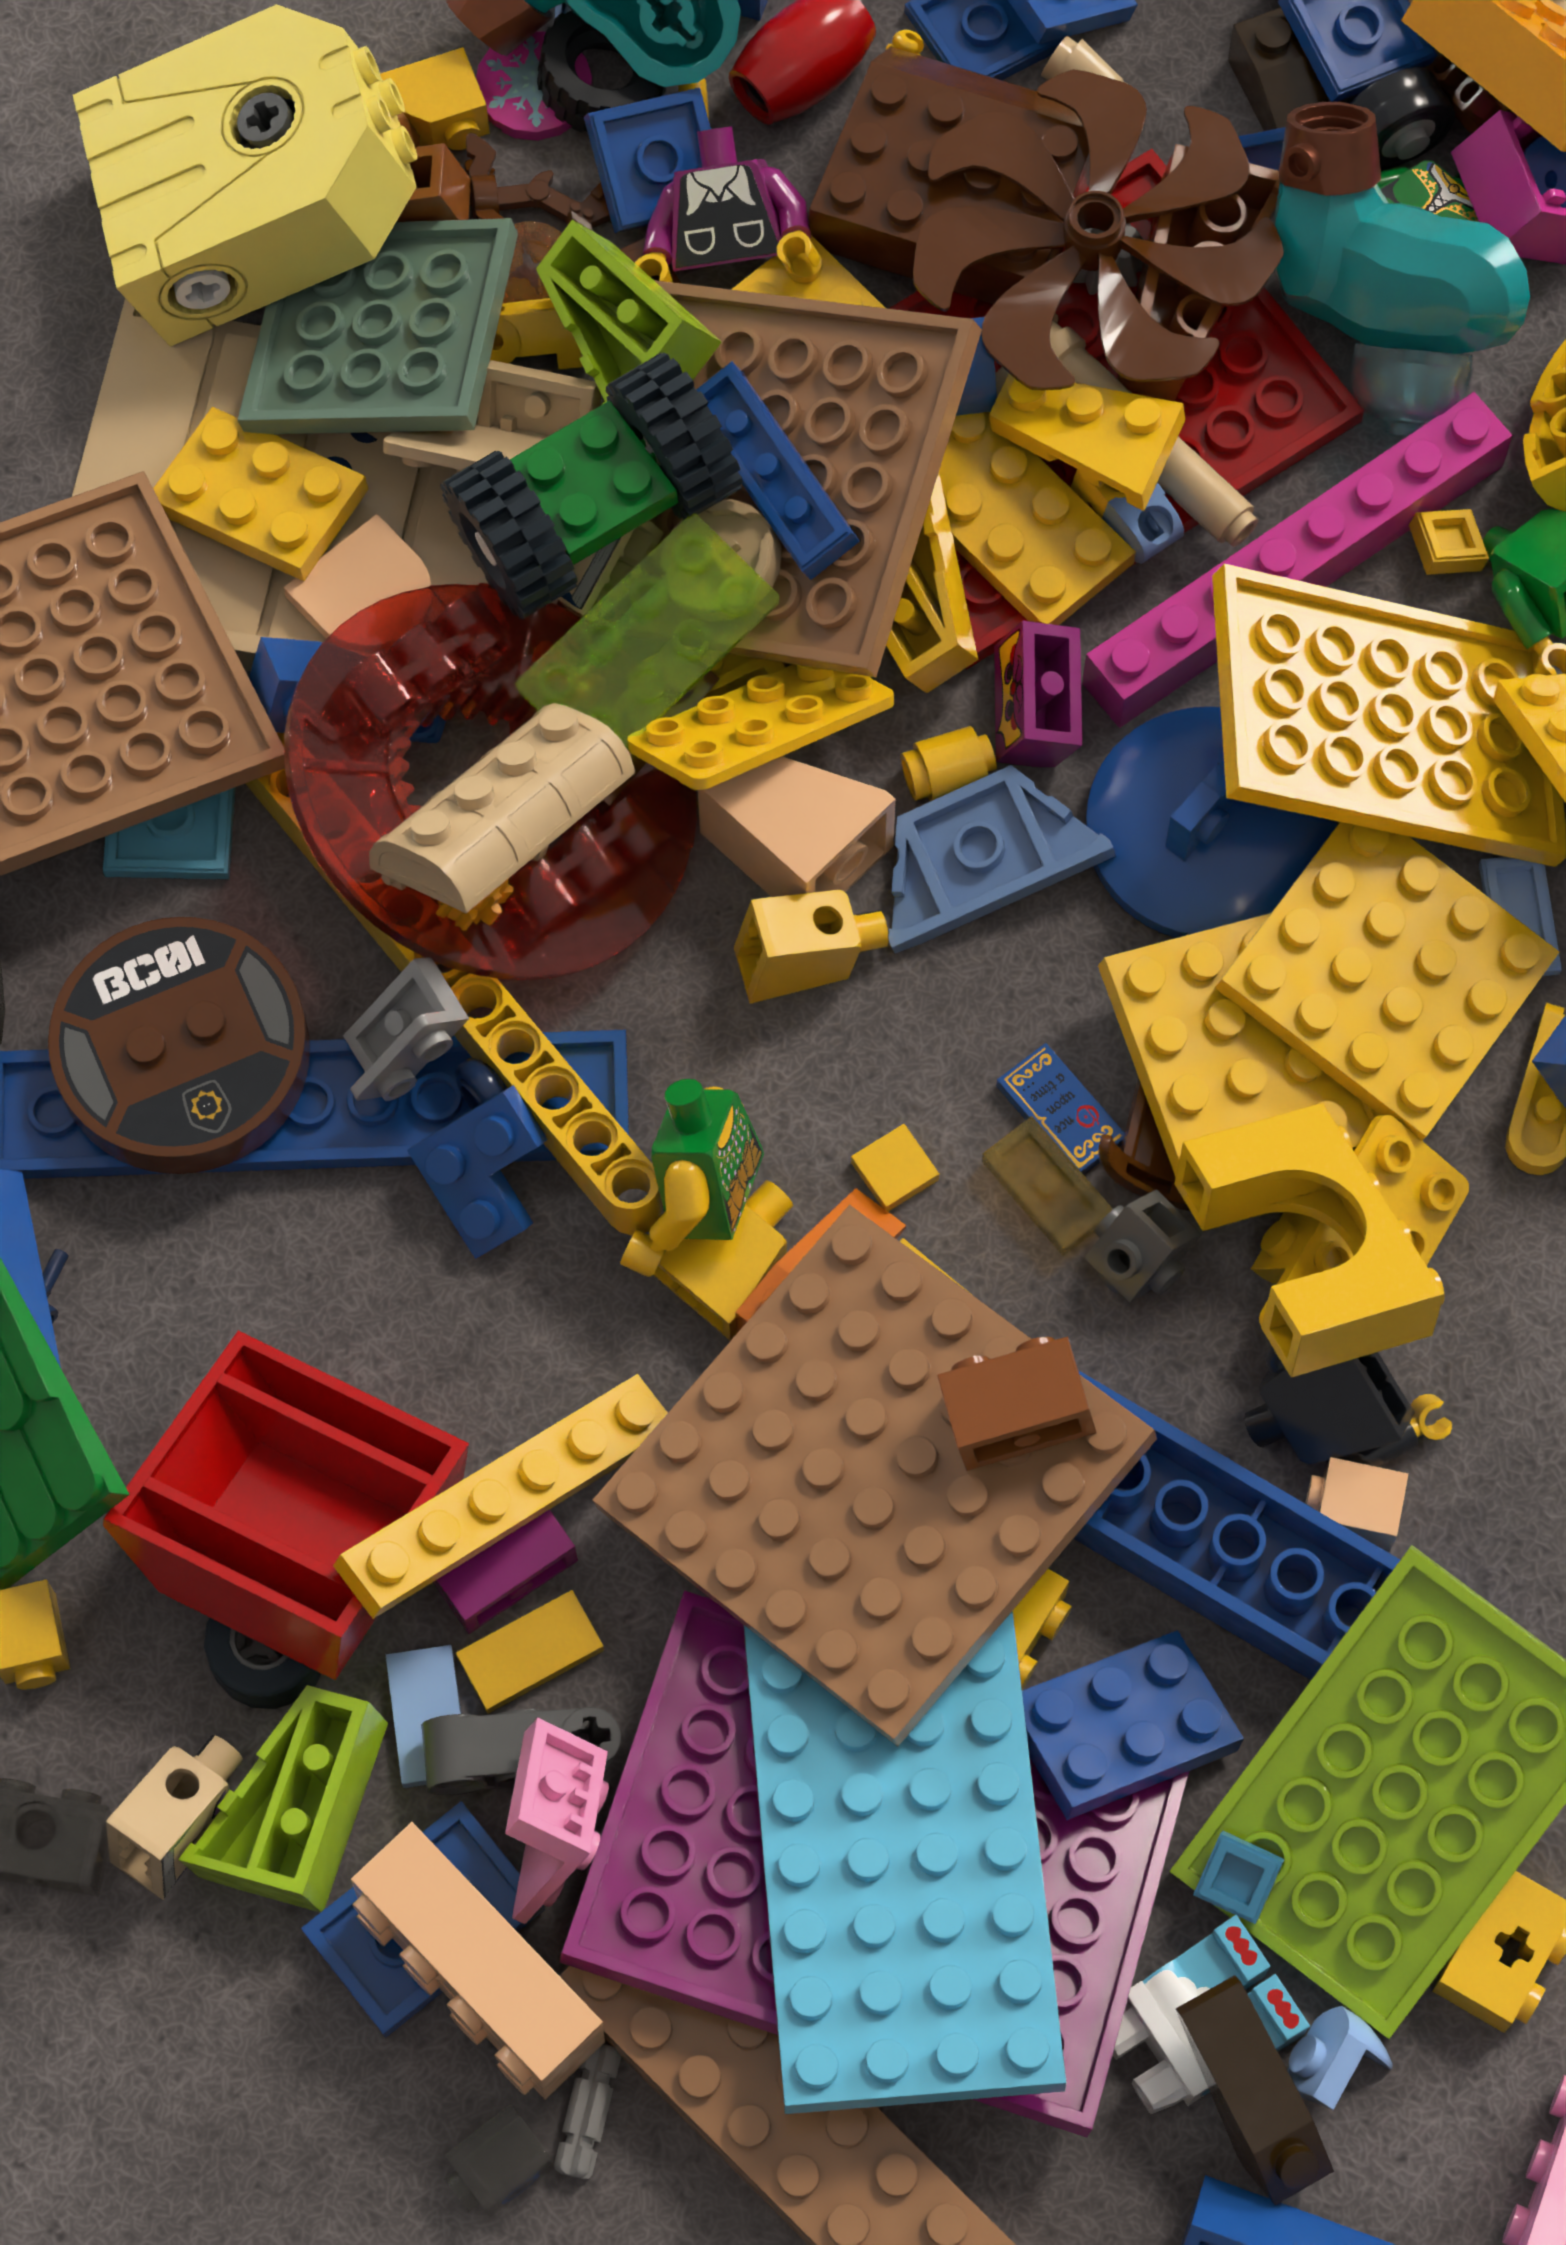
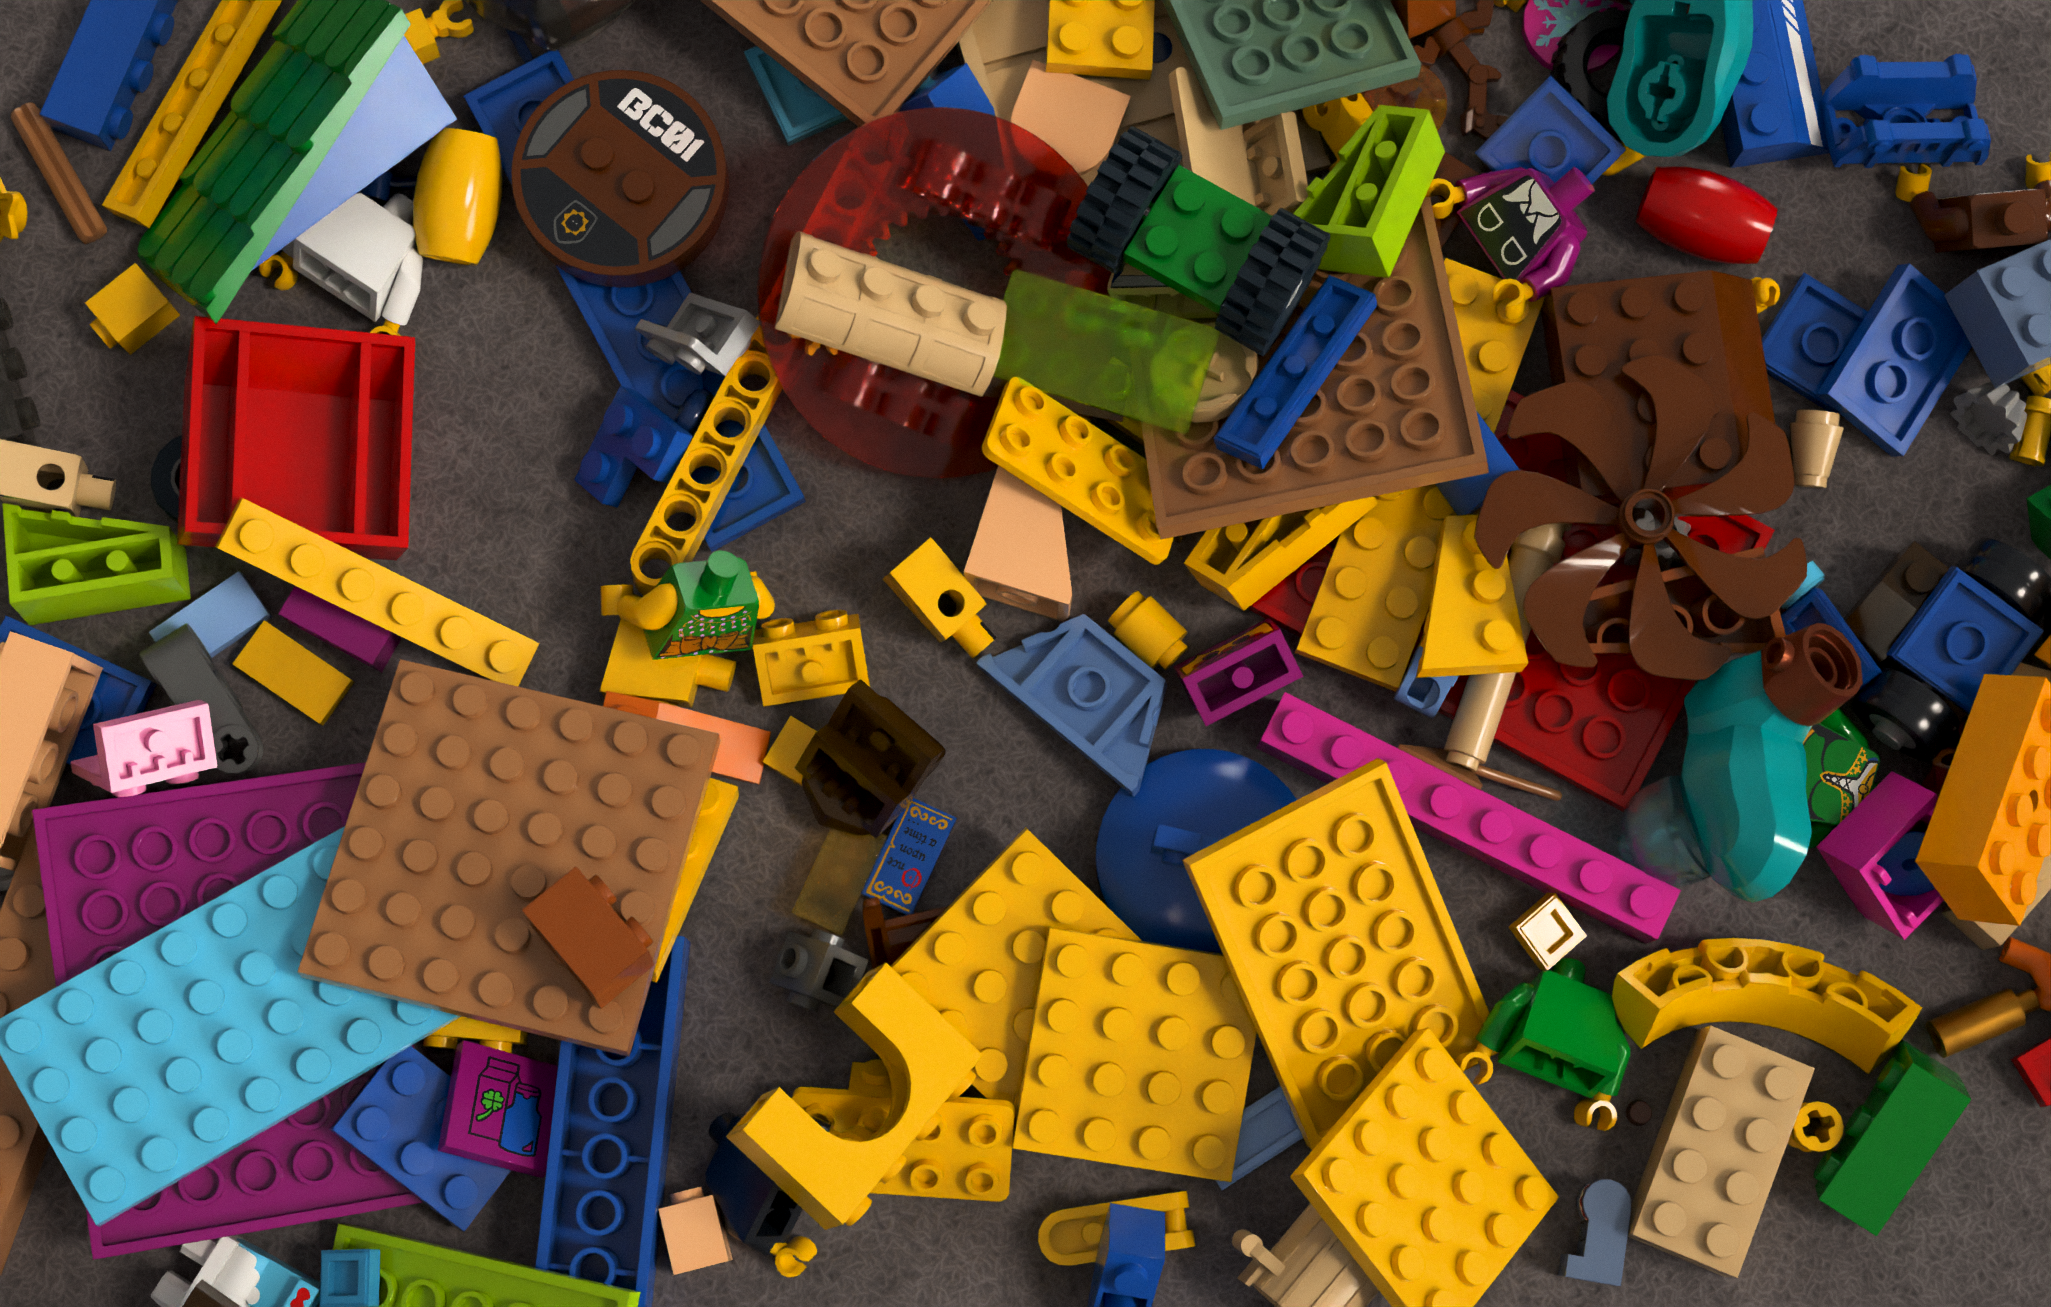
camera: 60 degrees right, 10 degrees up
(102, 1224) = (457, 196): none -> yellow piece
(122, 1347) = (361, 257): none -> white torso
(803, 1103) = (809, 657): none -> yellow bracket
(951, 1089) = (866, 763): none -> dark brown piece
(1132, 1633) = (499, 1109): none -> magenta tile
(1225, 550) = (1437, 758): none -> medium nougat piece

